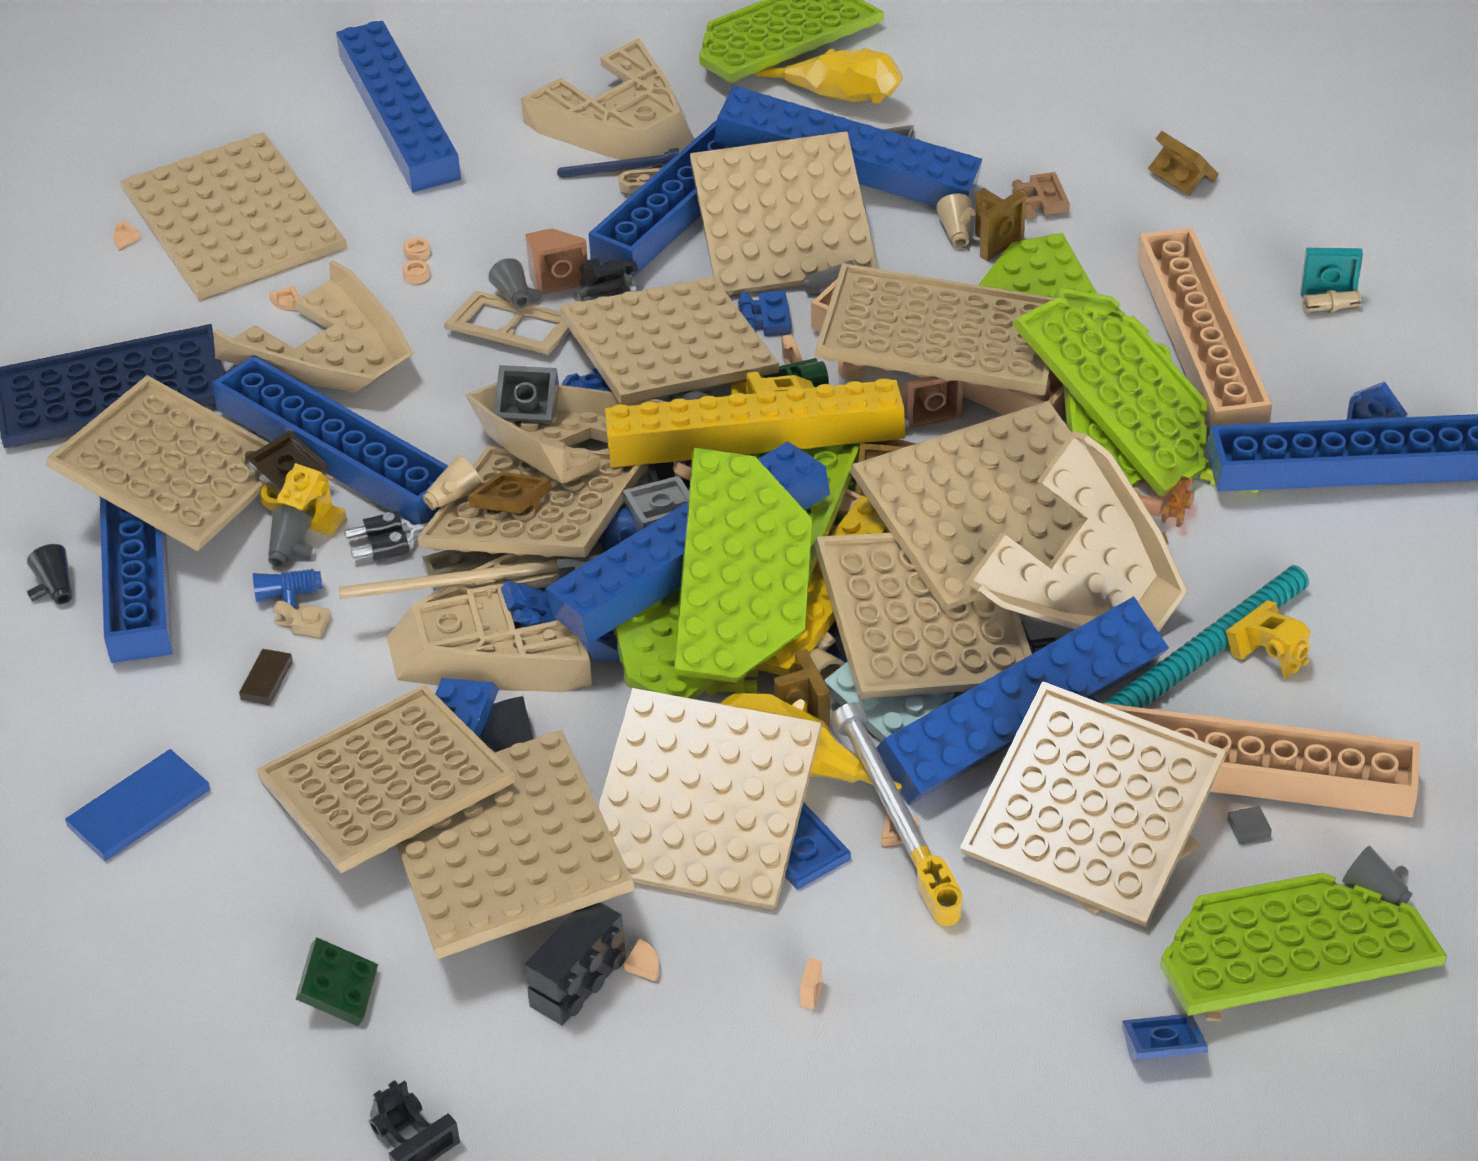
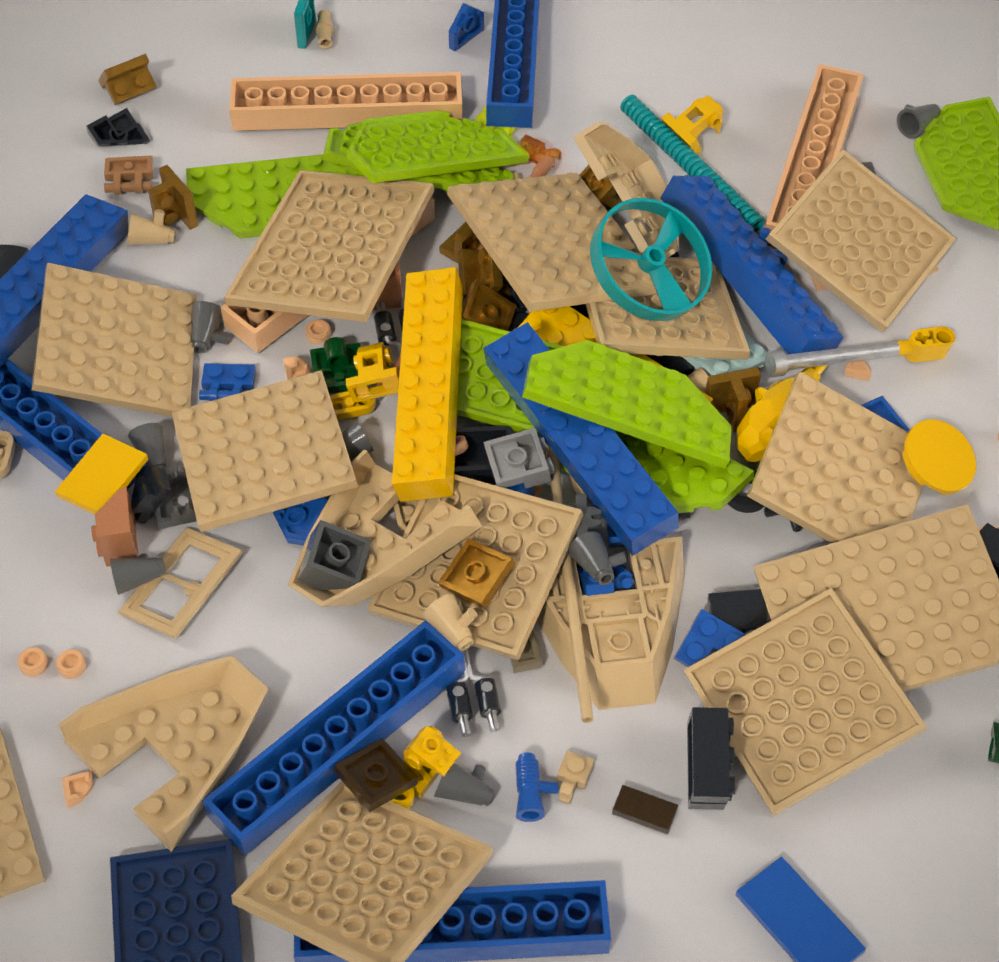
camera: 85 degrees left, 10 degrees up
(303, 696) = (710, 758): none -> black piece
(534, 577) = (592, 556): none -> dark grey piece
(608, 229) = (101, 474): none -> yellow tile
(665, 271) = (150, 440): none -> dark grey piece
(750, 900) = (939, 456): none -> yellow tile
(953, 563) = (652, 261): none -> teal piece
(1106, 177) = (117, 130): none -> black slope

